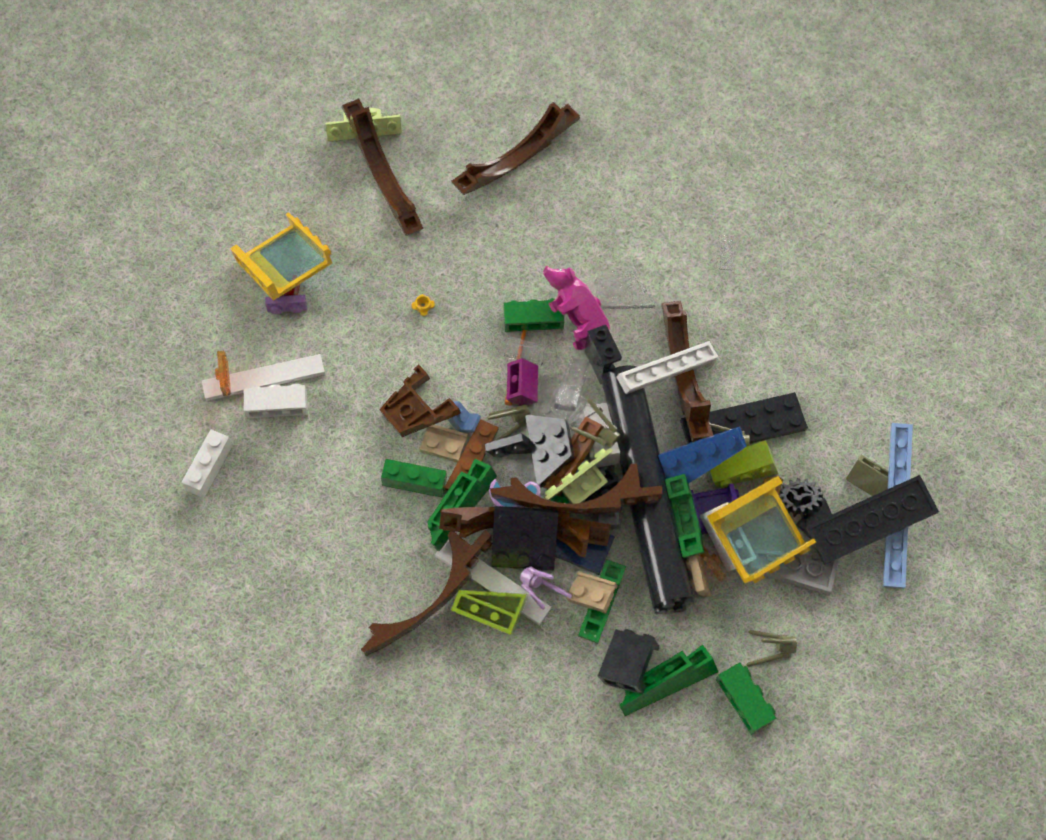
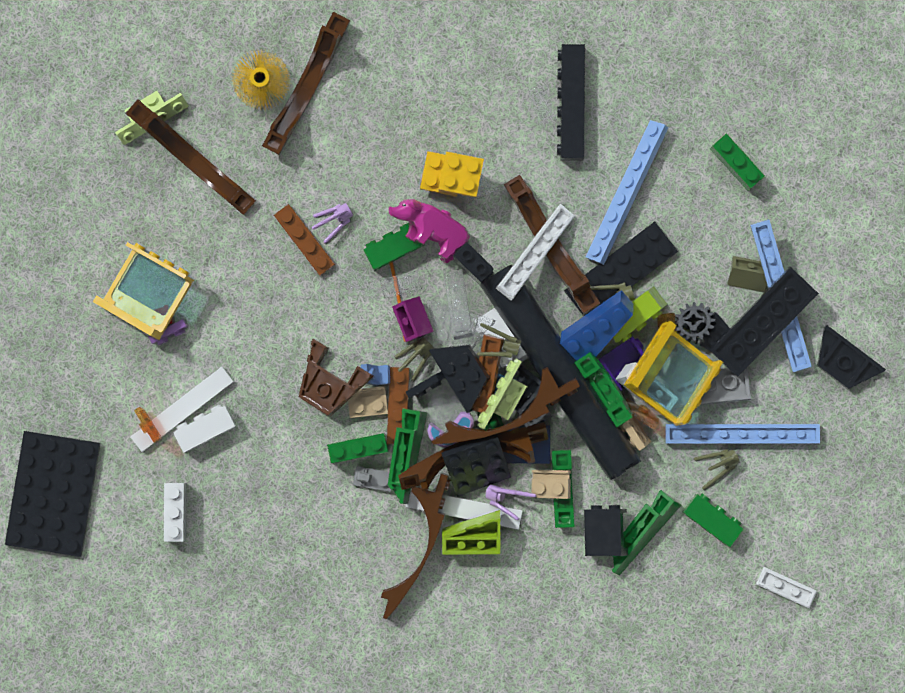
camera: 20 degrees left, 20 degrees up
(100, 402) = (52, 493): none -> black plate
(413, 515) = (371, 478): none -> light grey hinge
(423, 299) = (286, 273): yellow plate -> none
(452, 279) = (304, 240): none -> dark orange plate
(477, 129) = (252, 76): none -> yellow piece
(497, 269) = (341, 213): none -> lavender plant
(617, 269) = (451, 174): none -> yellow bracket
(755, 261) = (572, 102): none -> black brick
(777, 356) = (627, 192): none -> light blue plate
(799, 804) = (786, 587): none -> white tile
(810, 625) = (742, 434): none -> light blue plate
(896, 370) = (737, 162): none -> green brick
(942, 597) = (844, 360): none -> black wing

